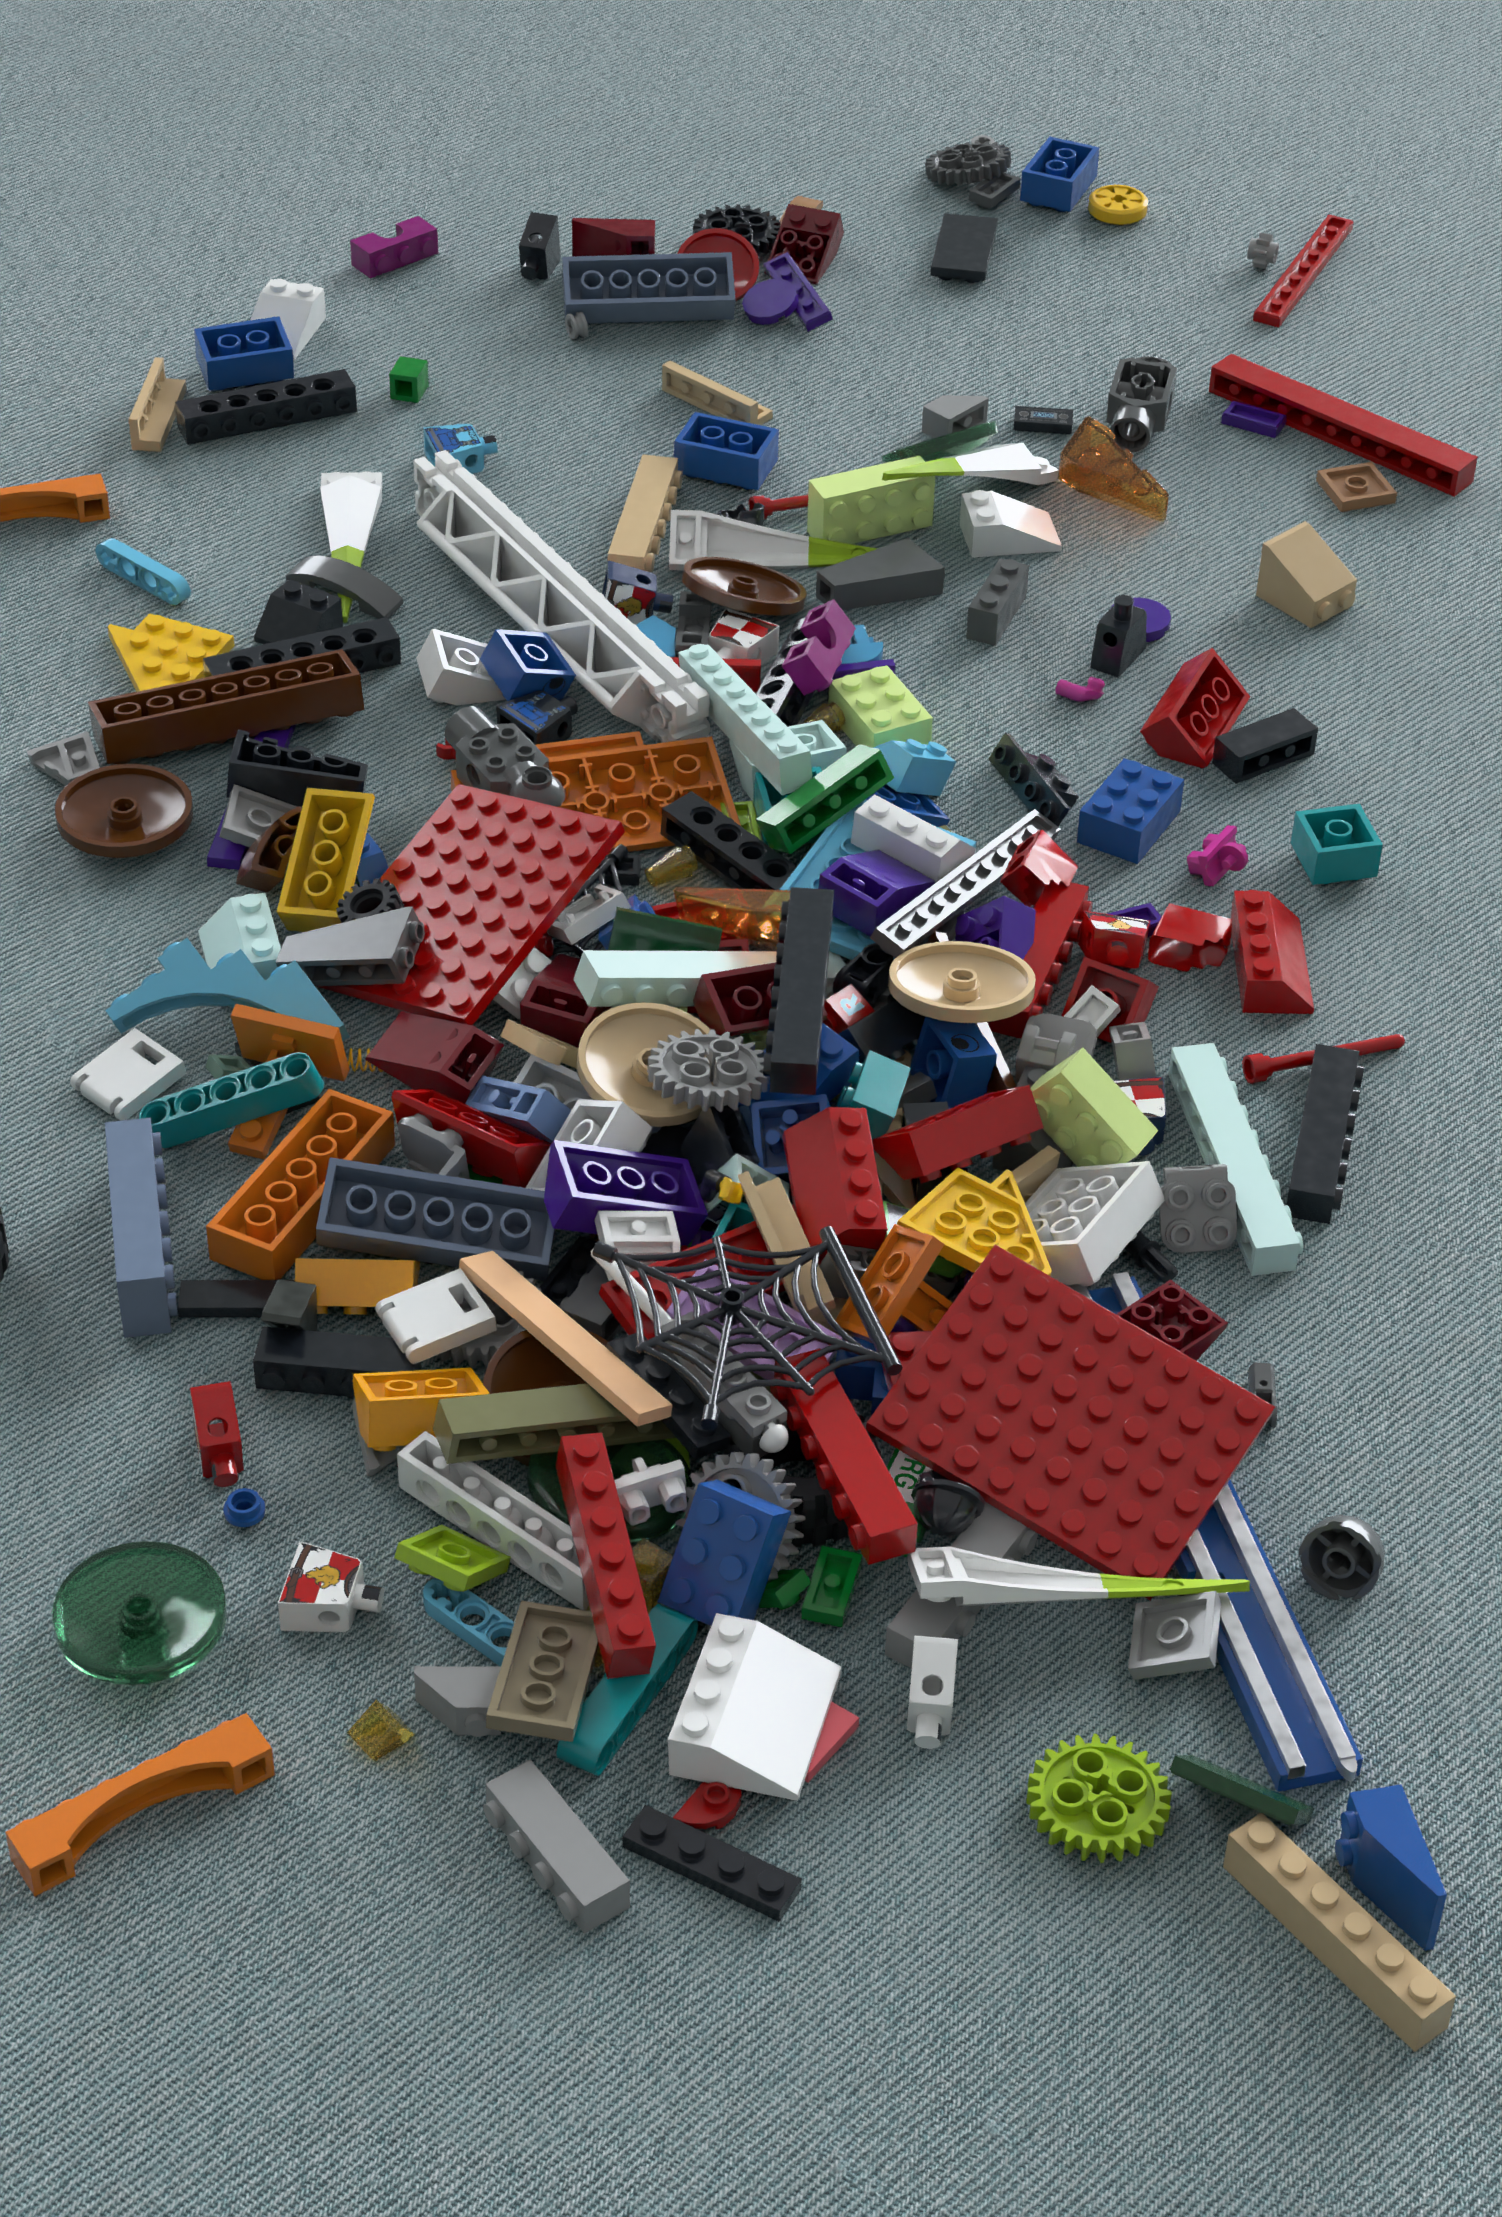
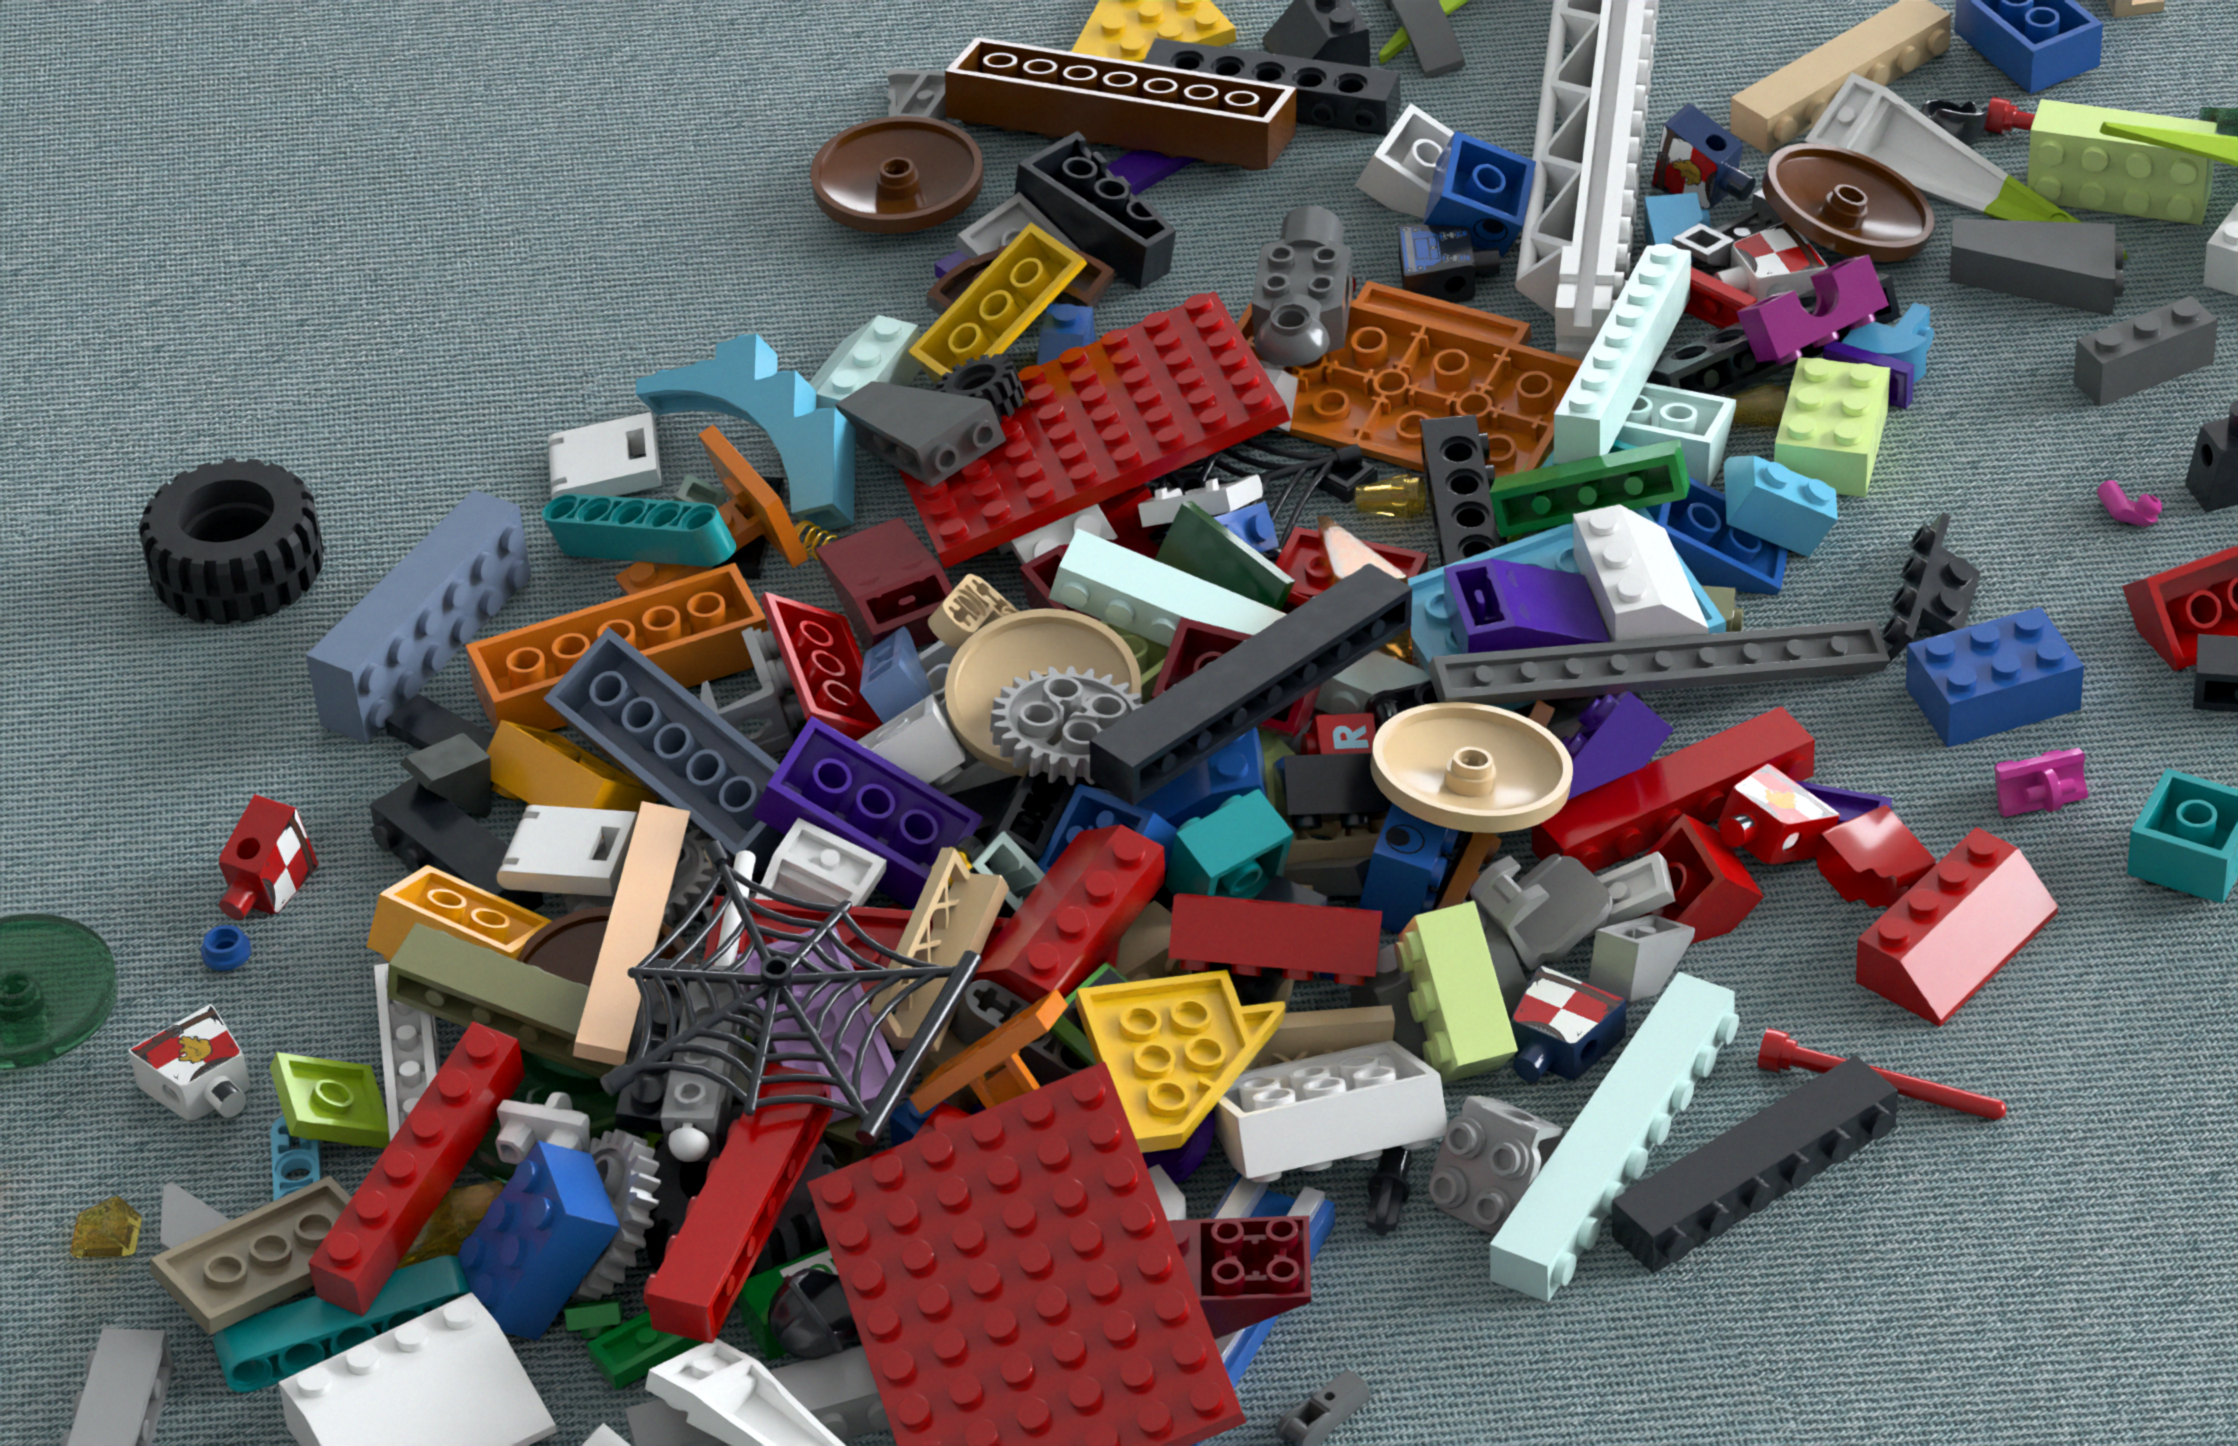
camera: 45 degrees right, 0 degrees up
(1035, 865) = (1774, 685): red piece -> none

